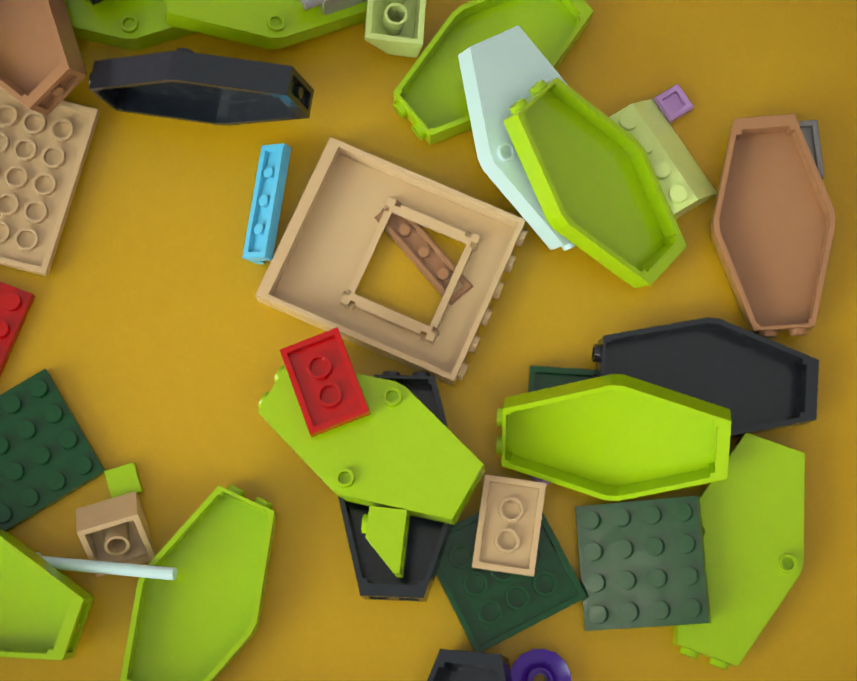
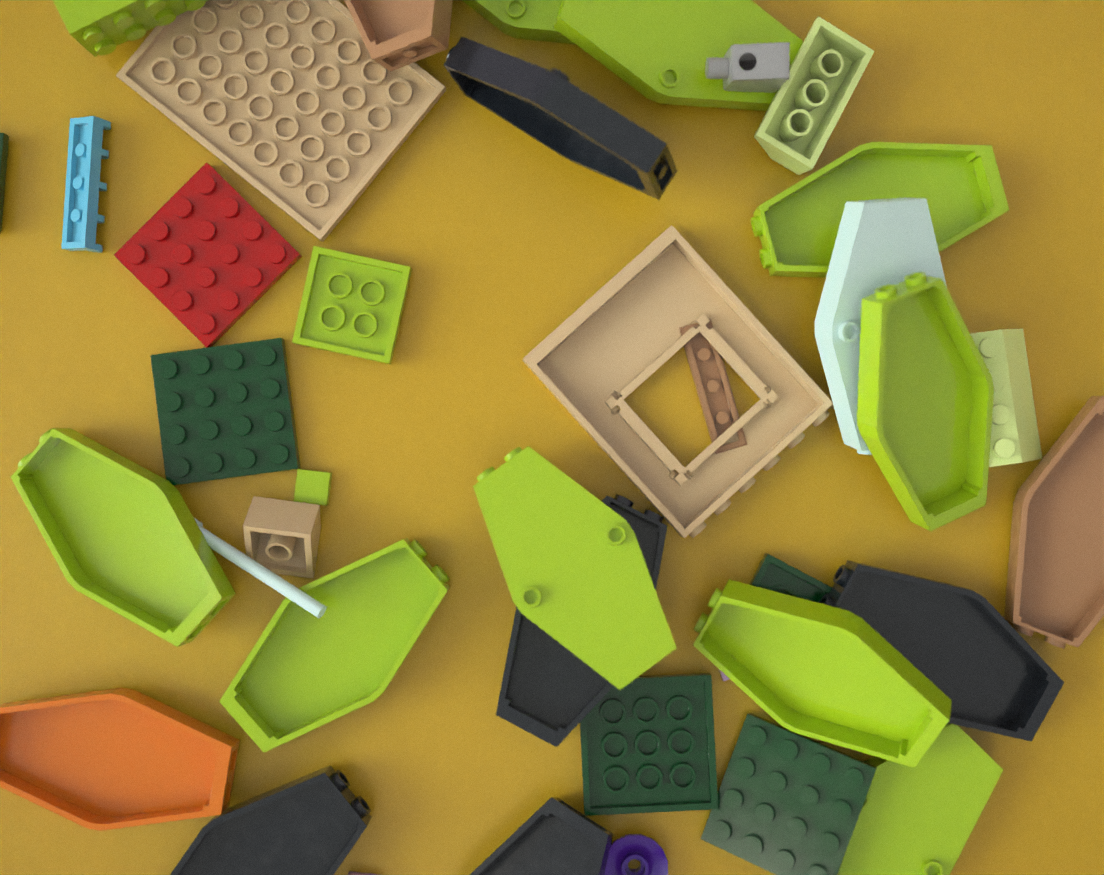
camera: 25 degrees right, 10 degrees up
(94, 316) = (352, 305): none -> lime plate
(266, 203) = (576, 264): medium azure hinge -> none
(324, 382) = (553, 489): red plate -> none
(388, 534) = (548, 672): lime slope -> none
(509, 525) = (673, 708): tan plate -> none
(673, 103) = (1043, 343): lavender tile -> none

